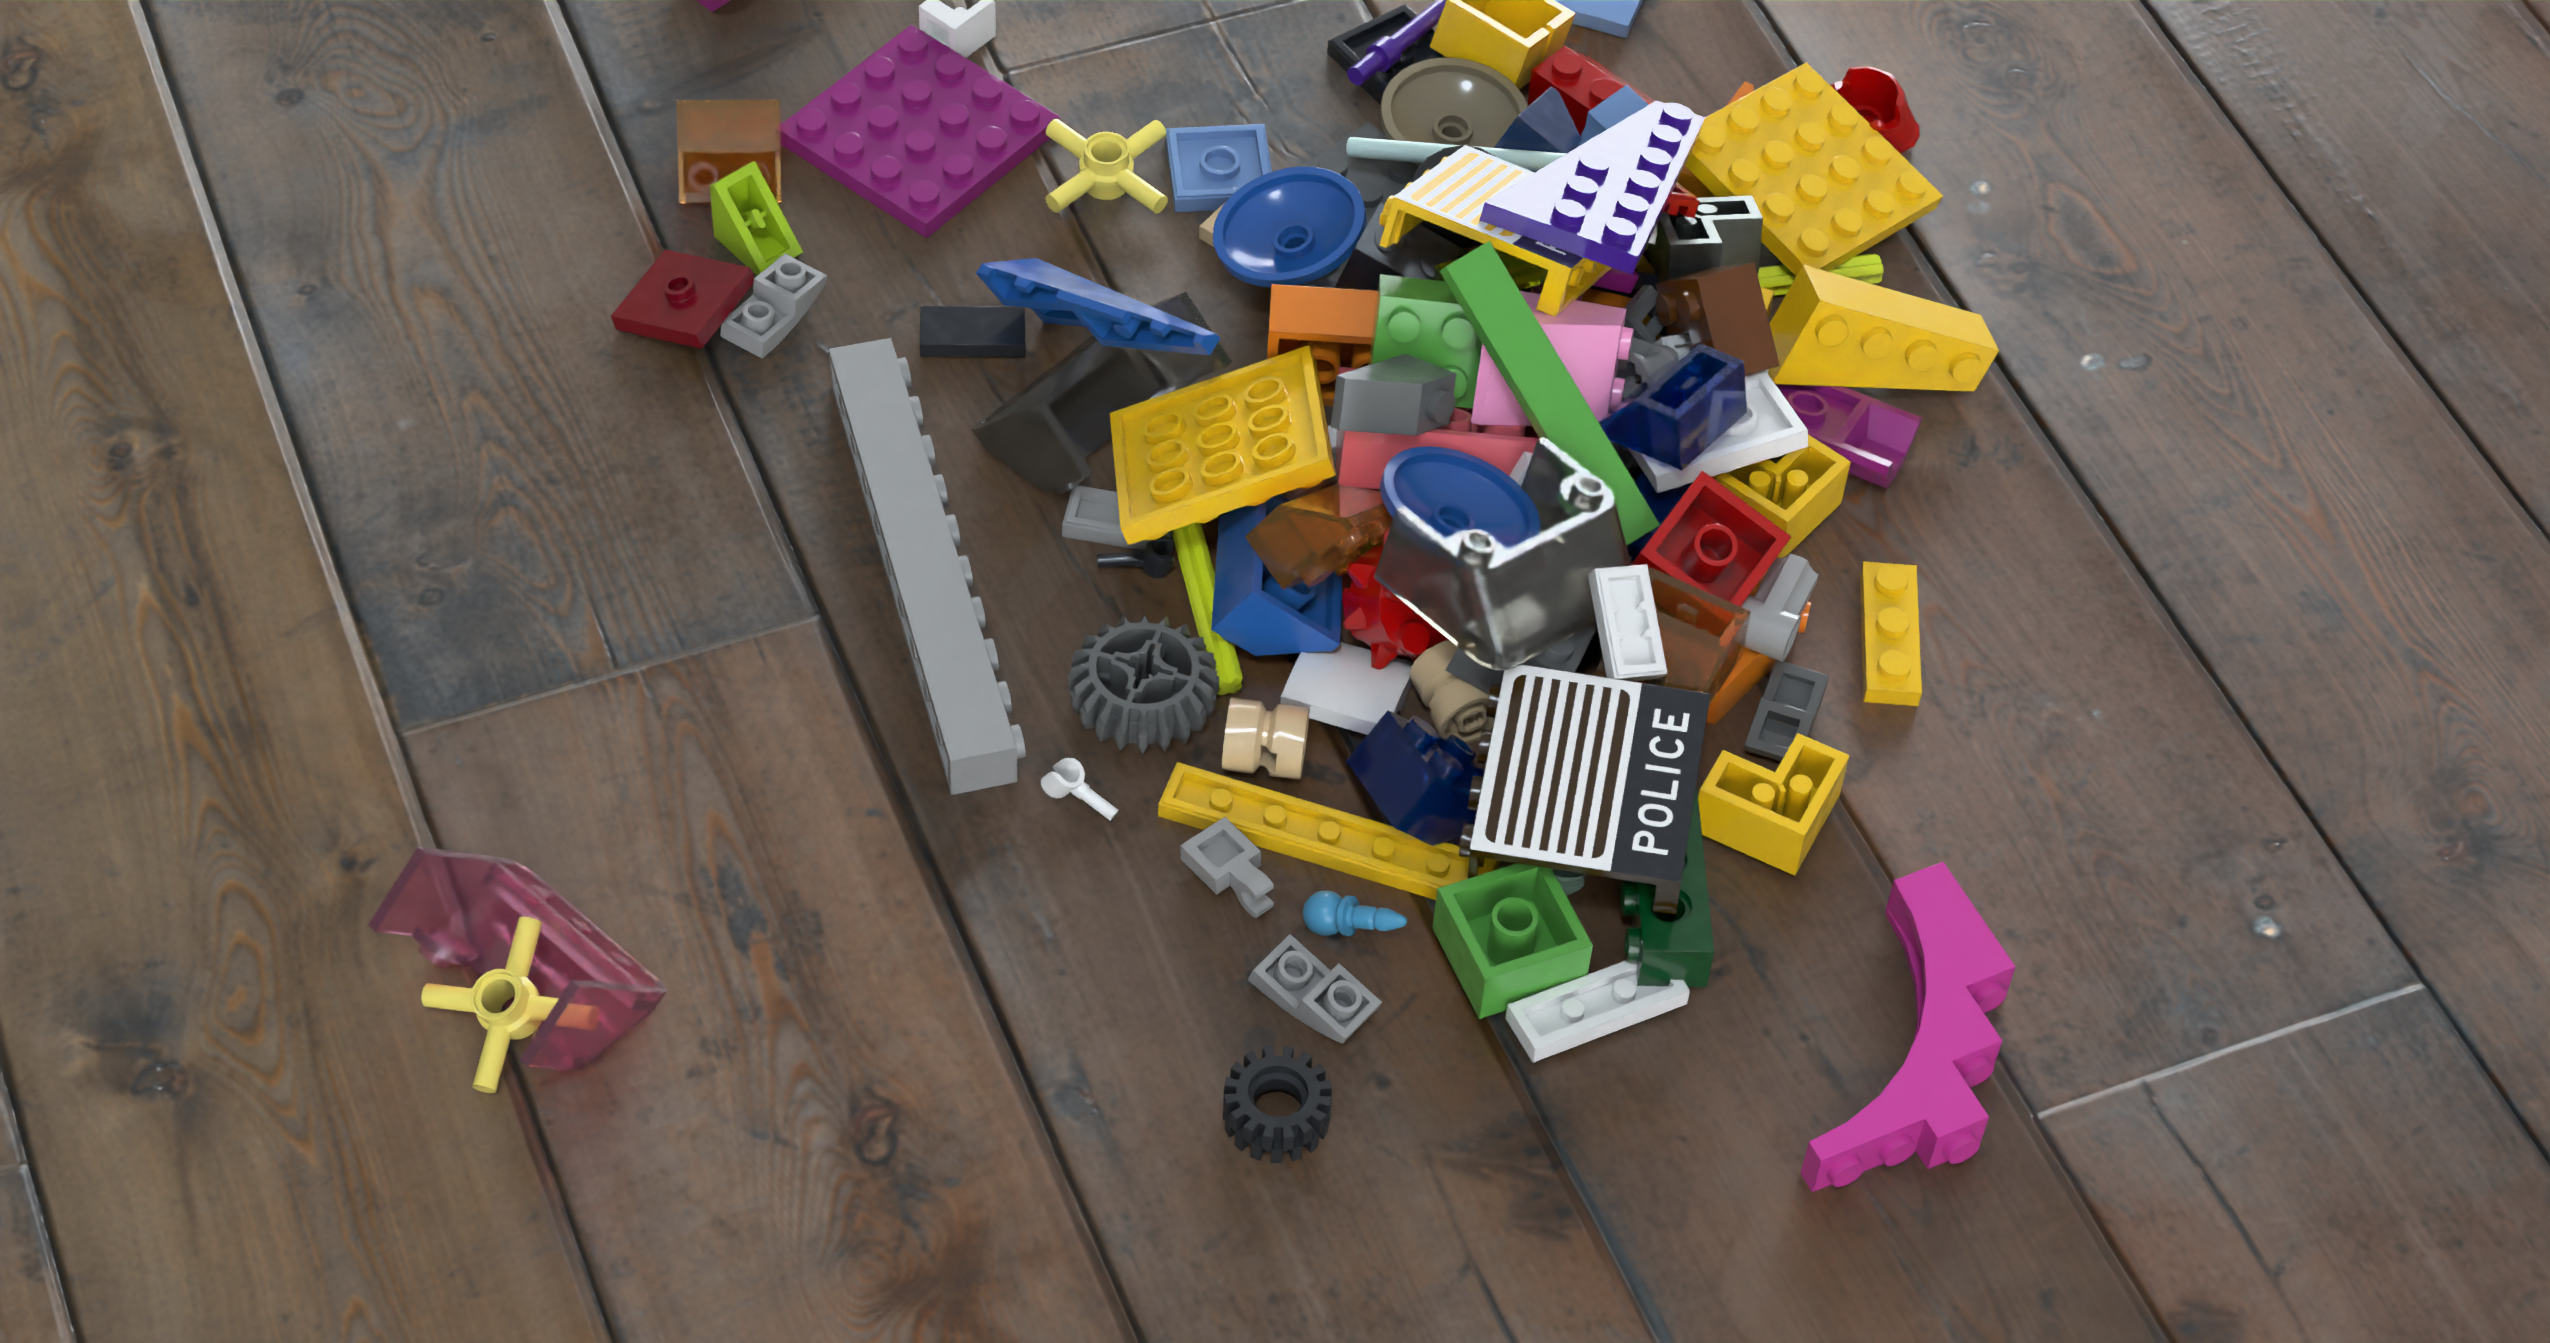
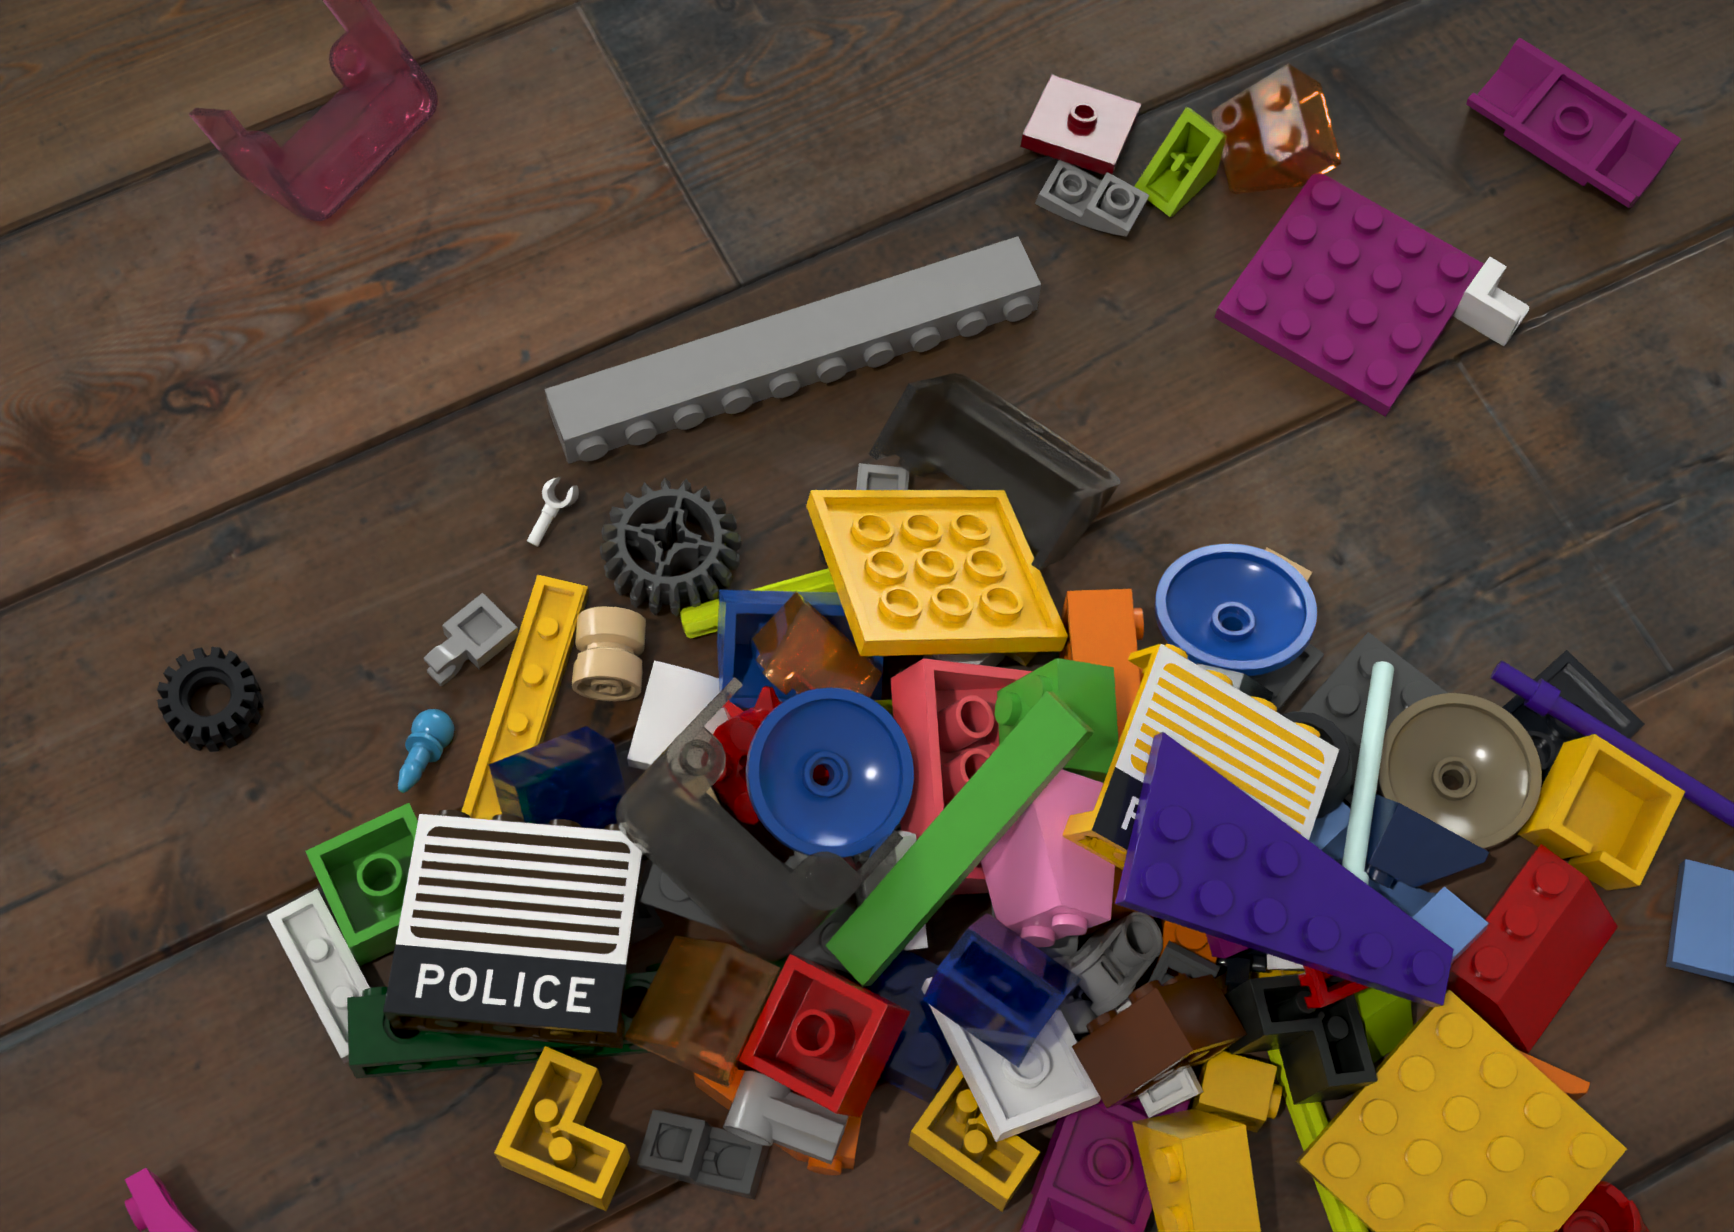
camera: 85 degrees right, 15 degrees up
(490, 995) = (289, 108): light yellow bar -> none
(972, 331) = (1093, 365): black tile -> none
(1076, 301) = (1096, 436): blue wedge -> none
(1106, 166) = (1320, 469): light yellow bar -> none
(1214, 163) = (1361, 563): medium blue tile -> none
(1308, 990) = (342, 725): light grey slope -> none
(1394, 397) = (954, 696): dark grey slope -> none
(1627, 623) = (691, 943): white plate -> none

